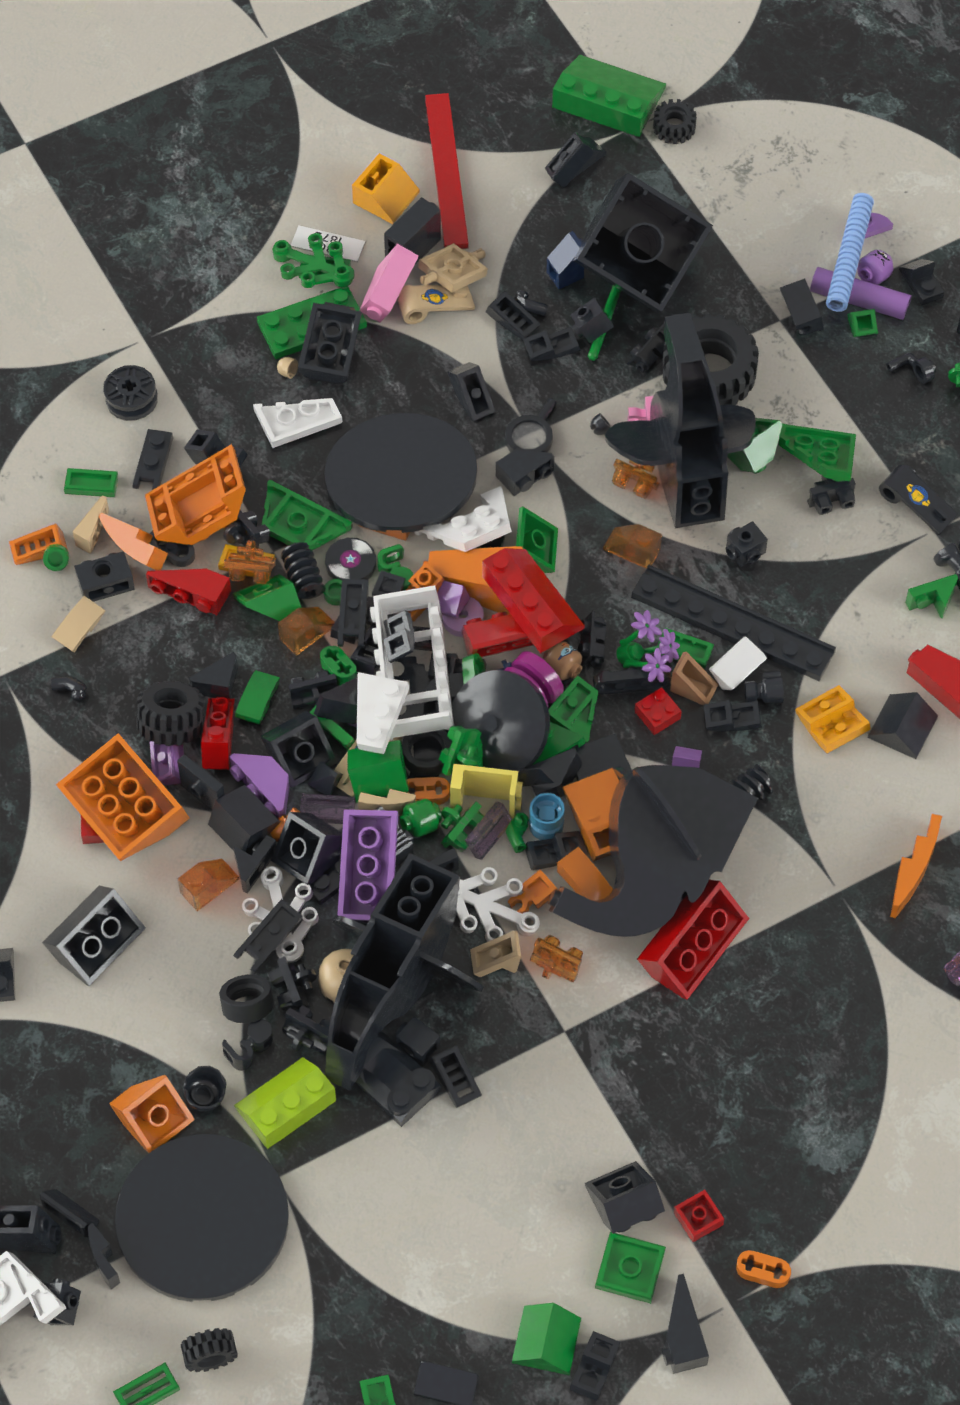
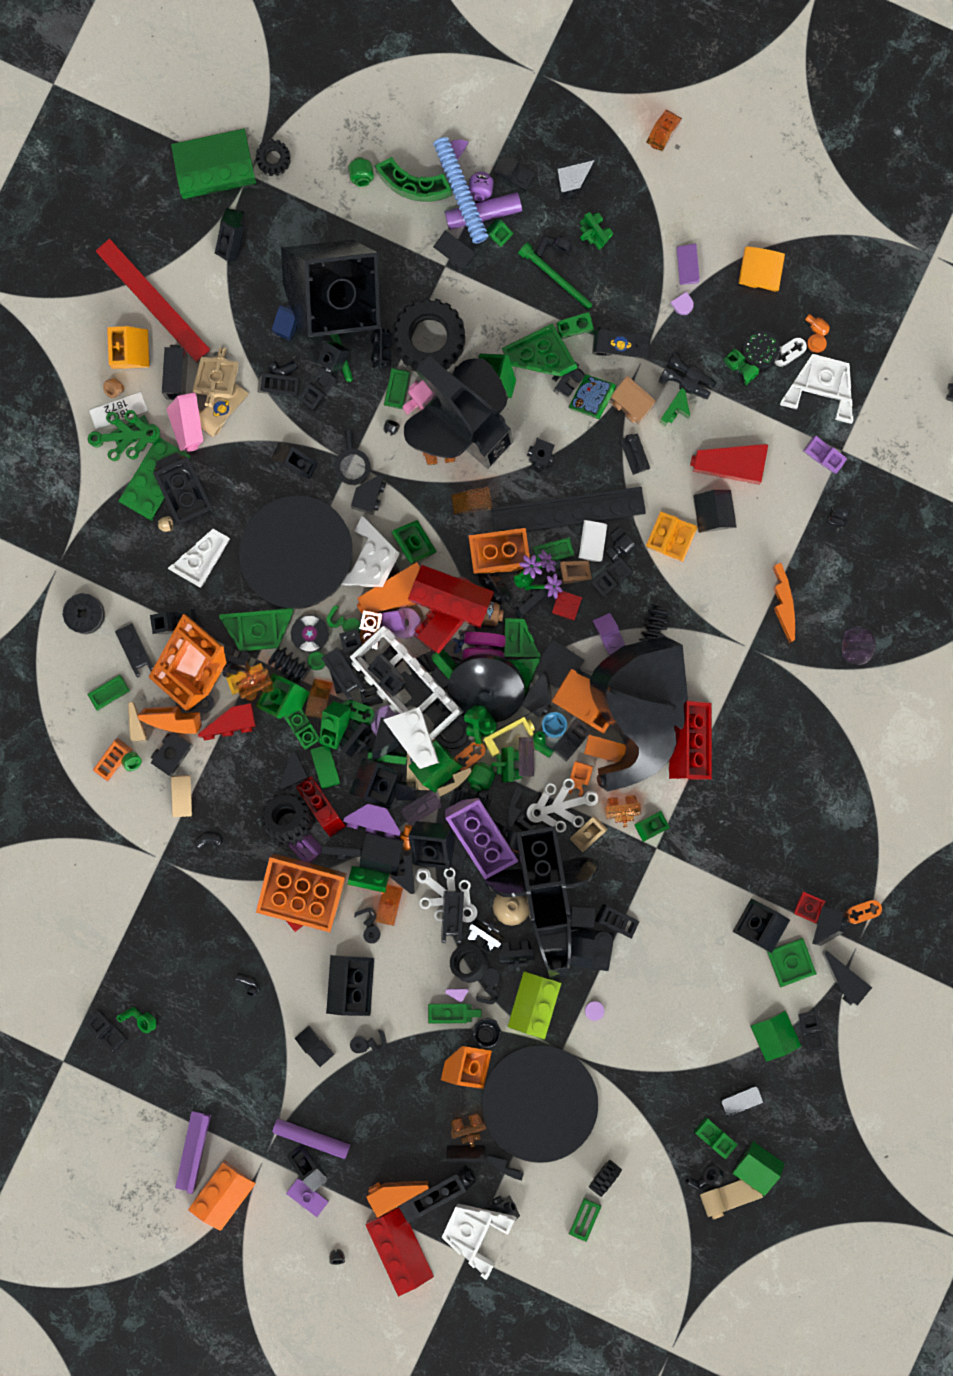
camera: 35 degrees left, 25 degrees up
(53, 1009) = (360, 1044): none -> black leg
(92, 1187) = (459, 1130): none -> clear orange hips
(164, 895) = (372, 932): none -> black leg
(182, 1043) = (451, 1013): none -> green hinge
(208, 838) = (368, 879): none -> green plate
(208, 1026) = (457, 994): none -> lavender slope
(264, 644) = (302, 728): none -> green slope
(301, 655) = (334, 724): none -> green slope
(339, 217) = (113, 388): none -> medium nougat tile
(350, 1157) = (594, 1010): none -> lavender tile
(575, 997) = (652, 826): none -> green slope
(616, 597) = (499, 551): none -> orange slope
(635, 394) = (397, 388): none -> green tile
(708, 1251) = (830, 925): none -> black slope
(756, 183) = (360, 172): none -> green head
(800, 226) = (413, 188): none -> green brick
(847, 524) = (592, 396): none -> tile
(853, 611) = (635, 453): none -> black hinge
(880, 355) = (528, 252): none -> green piece
(880, 450) = (575, 325): none -> green leg
(890, 554) = (632, 400): none -> medium nougat slope

